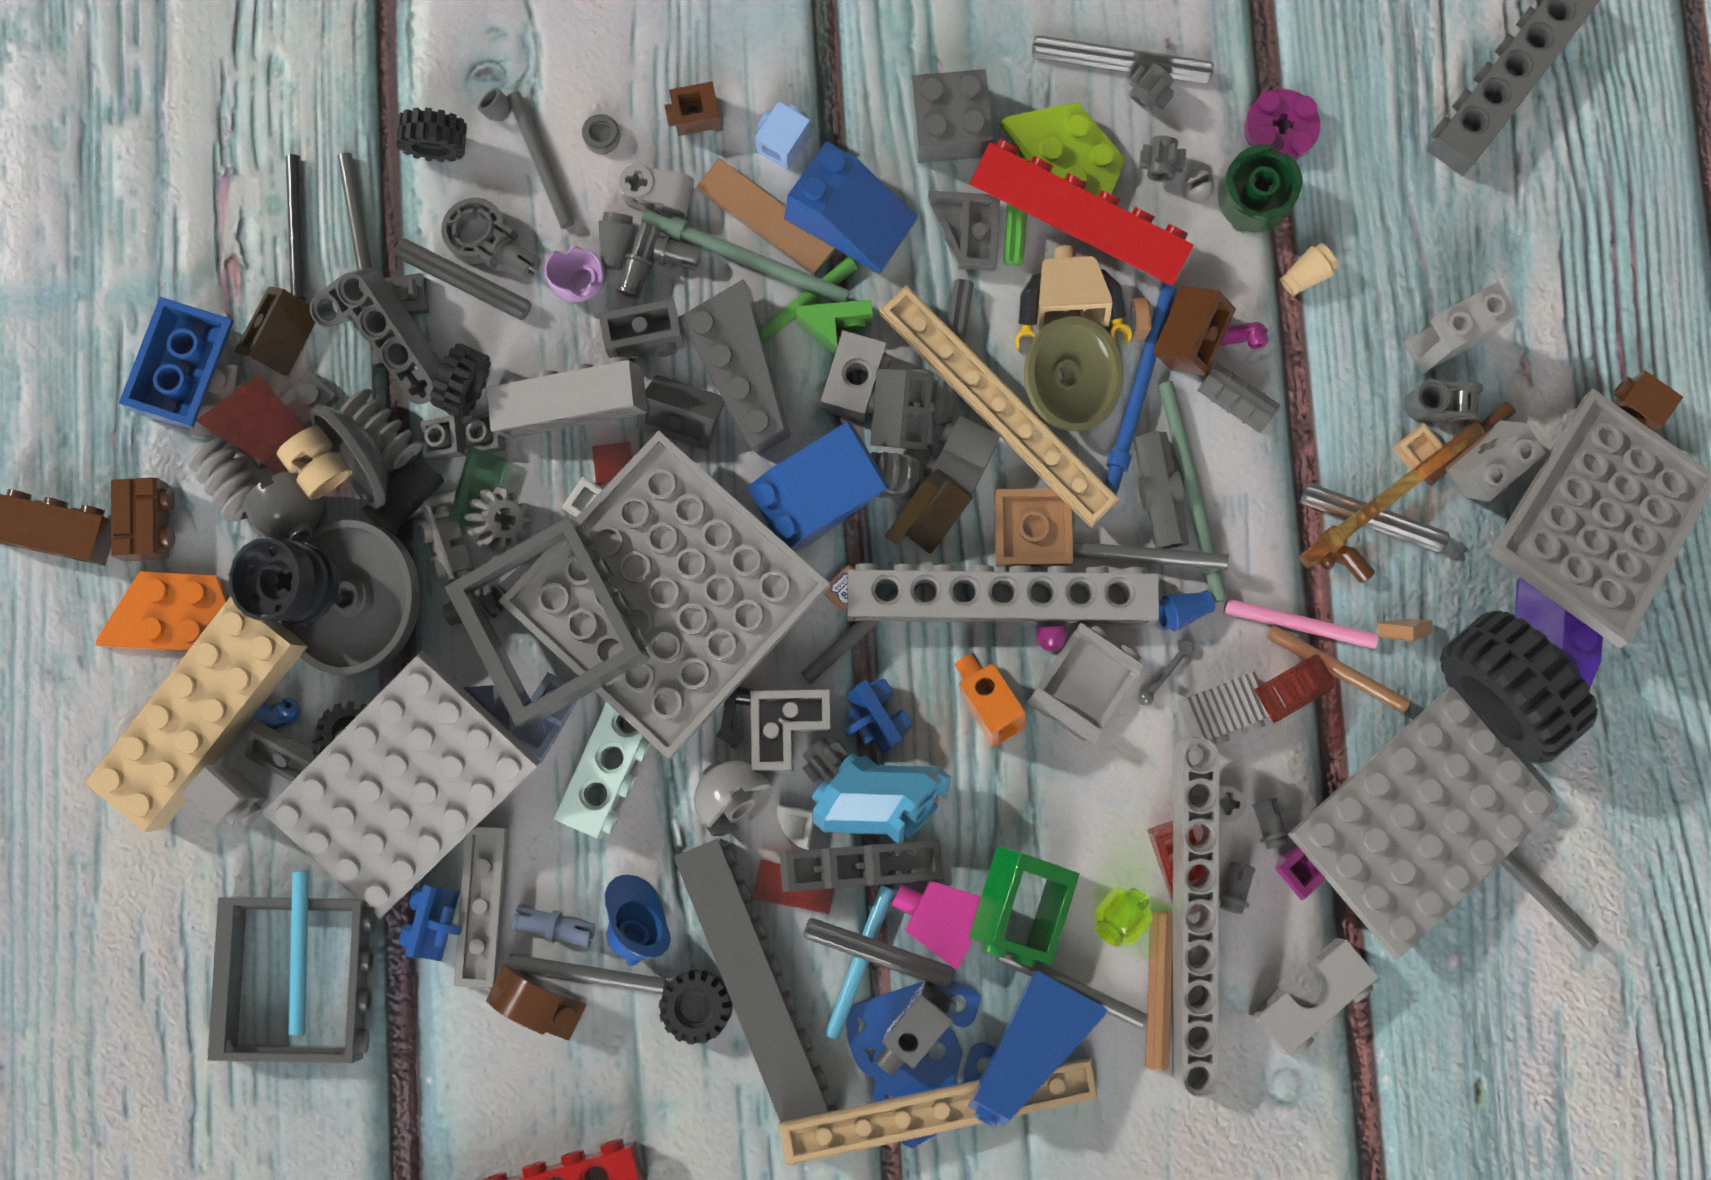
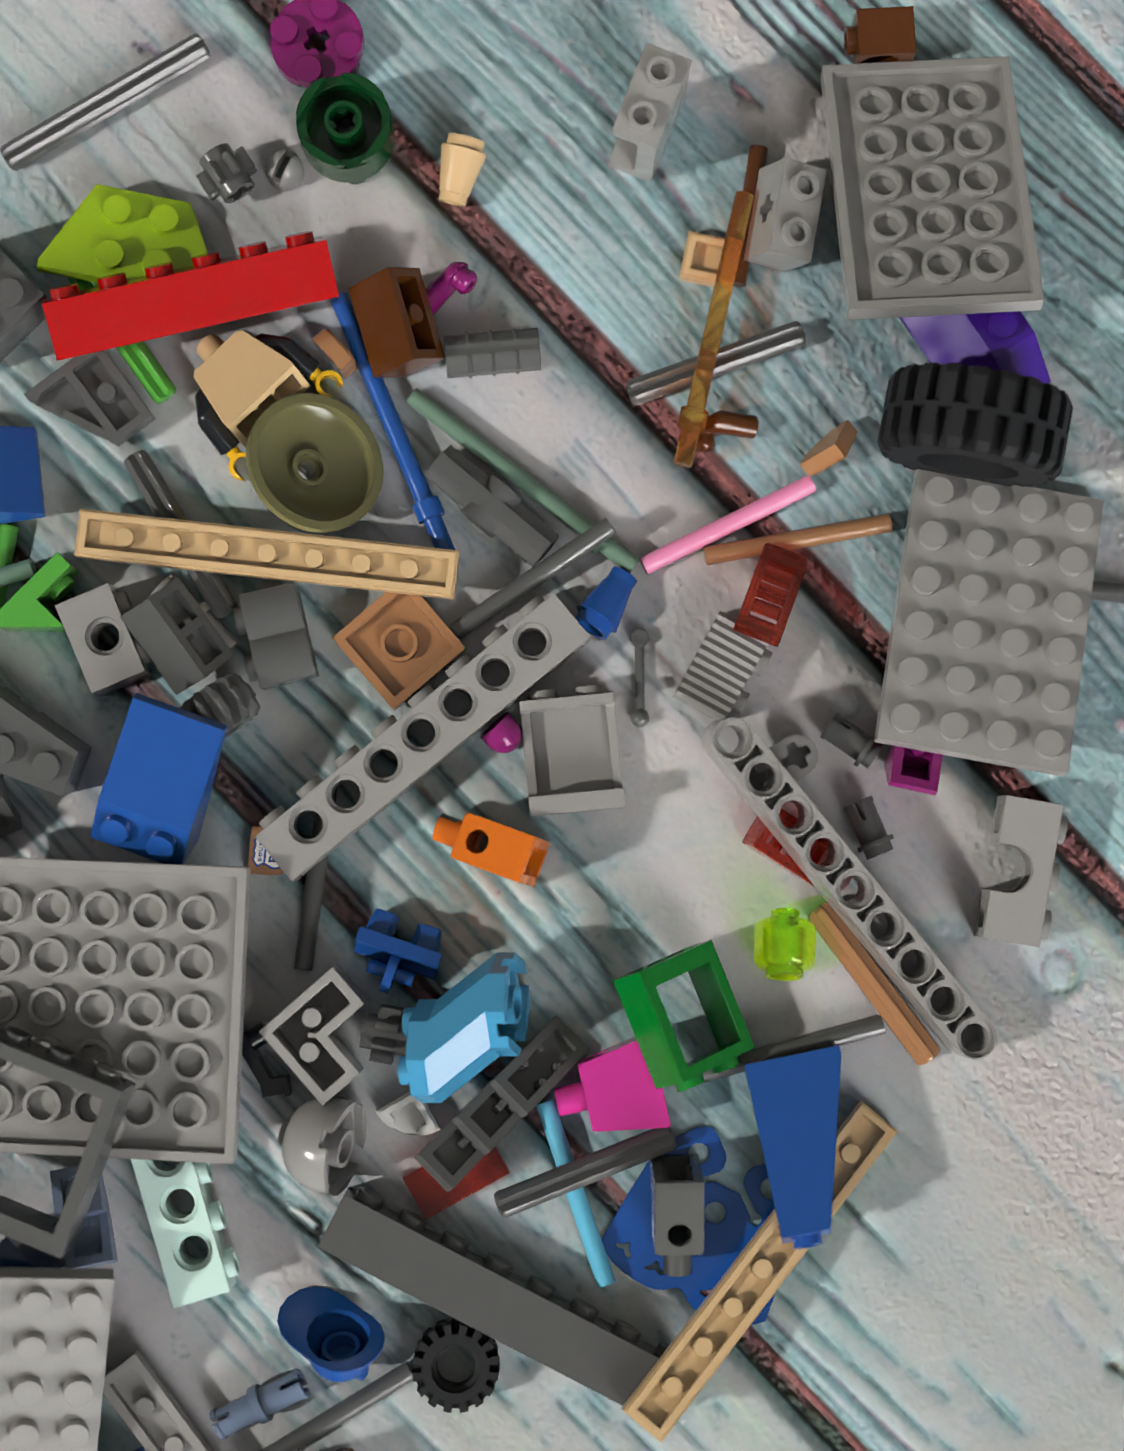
camera: 45 degrees left, 5 degrees up
(930, 512) = (288, 712): dark brown panel -> none
(1151, 87) = (157, 109): dark grey gear -> none
(1452, 402) = (701, 188): dark grey piece -> none

